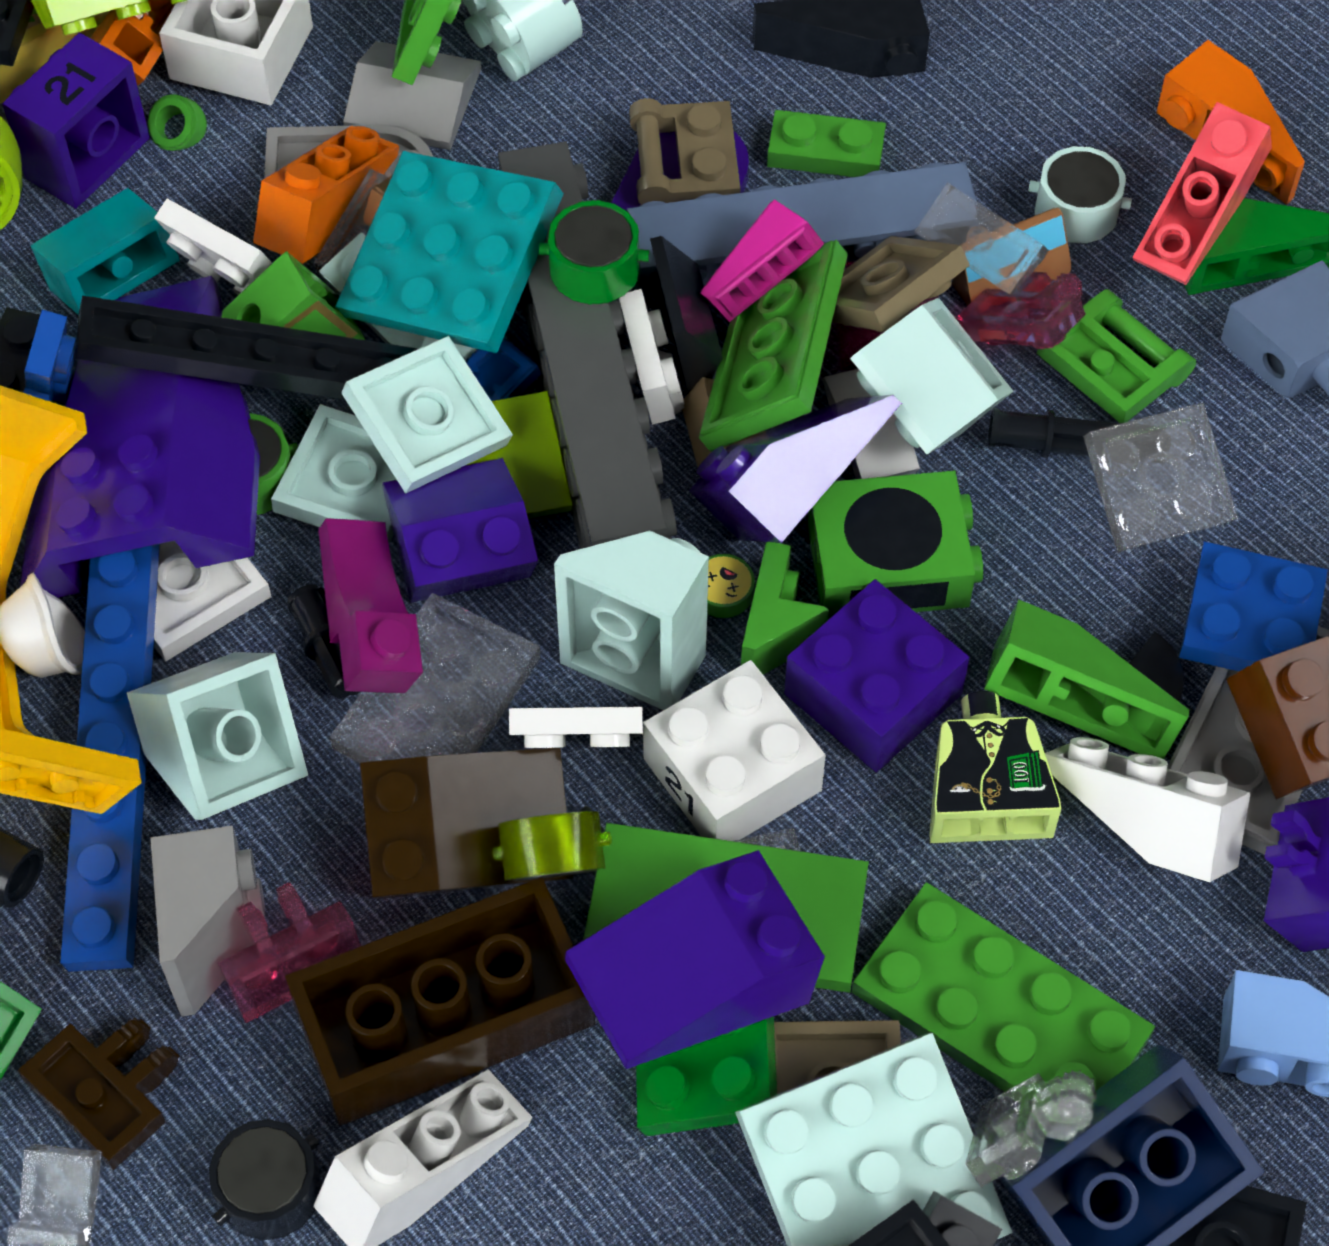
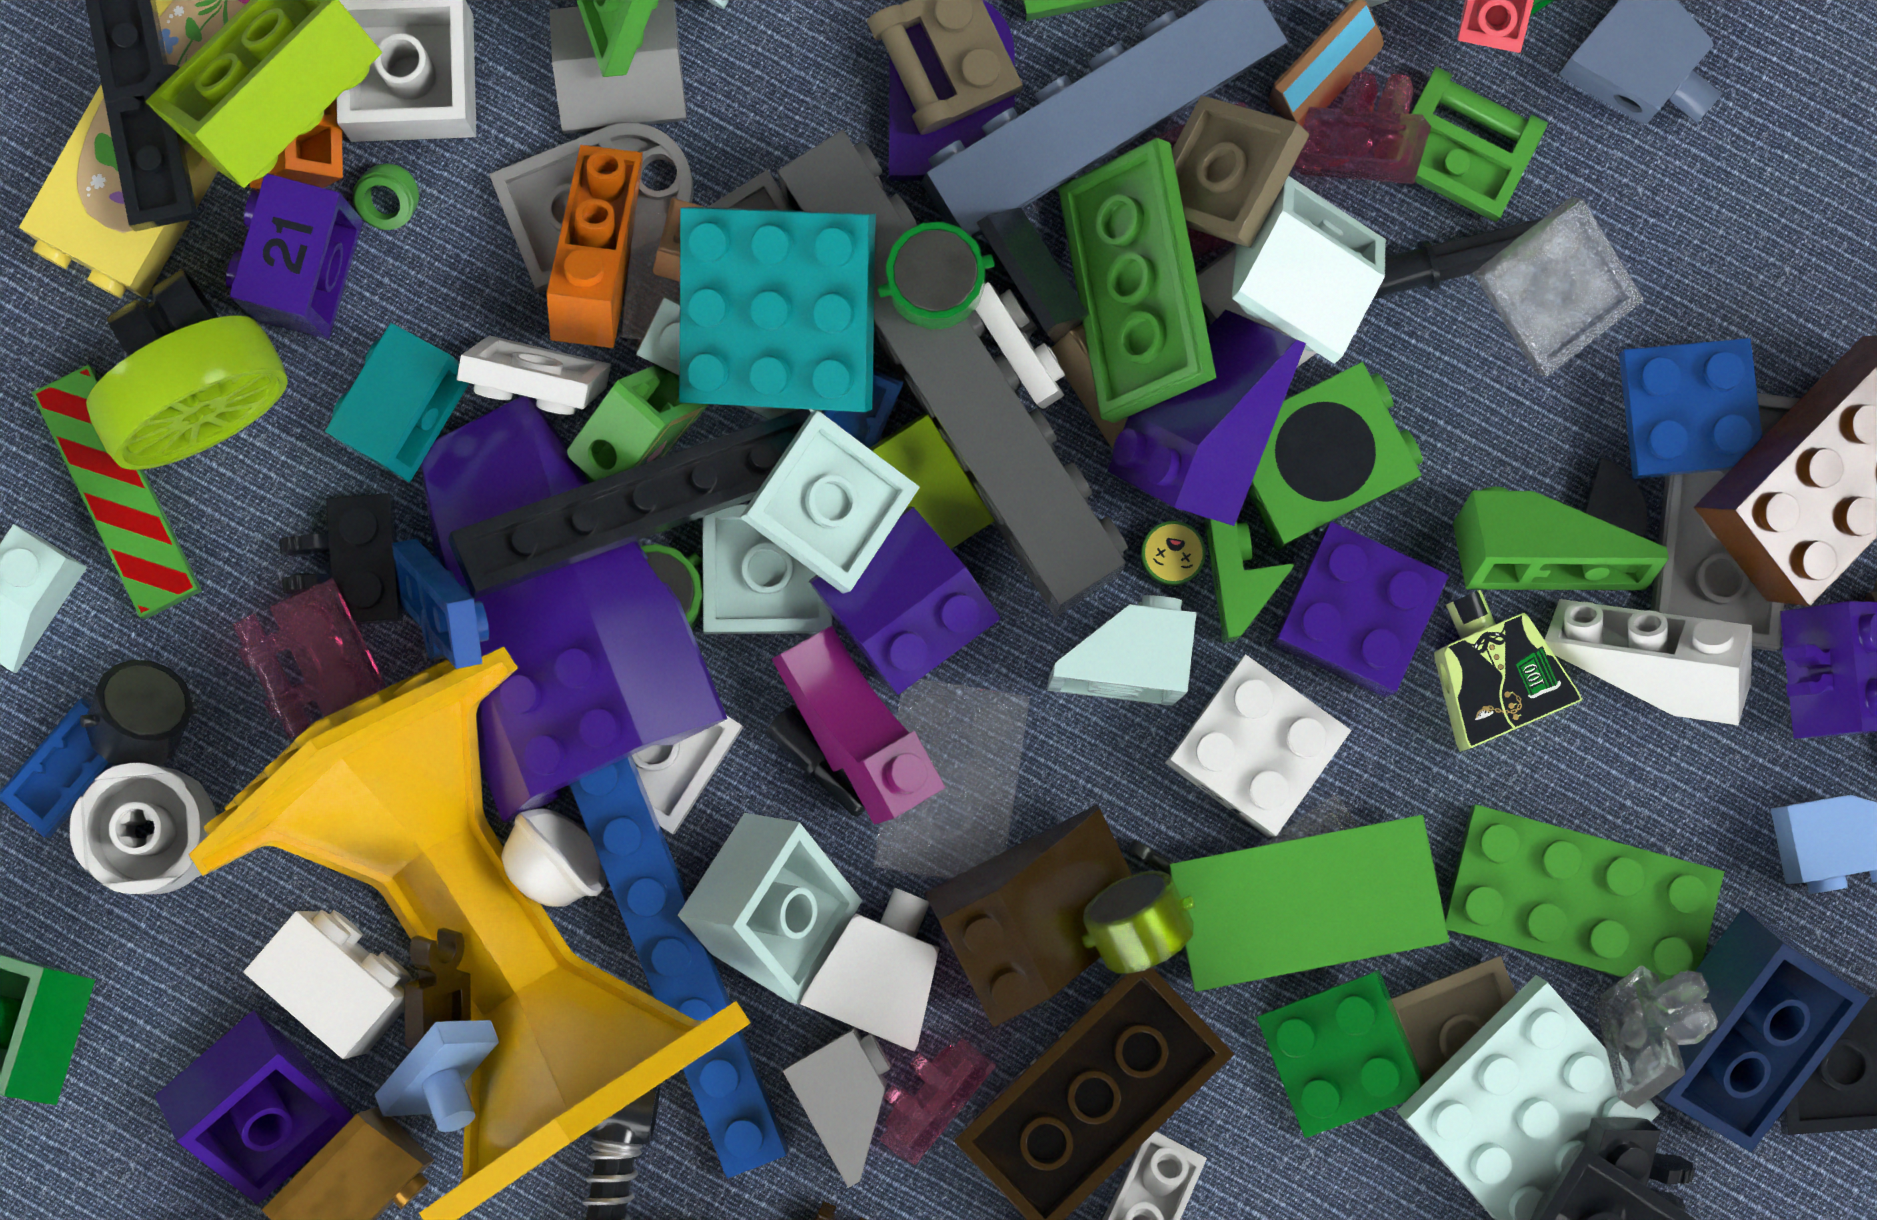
camera: 20 degrees left, 25 degrees up
(295, 827) = (879, 973): none -> white torso
(550, 725) = (1105, 775): white plate -> none
(698, 961) = (1317, 998): dark purple slope -> none
(760, 260) = (1097, 176): dark pink slope -> none
(989, 242) = (1299, 73): clear slope -> none

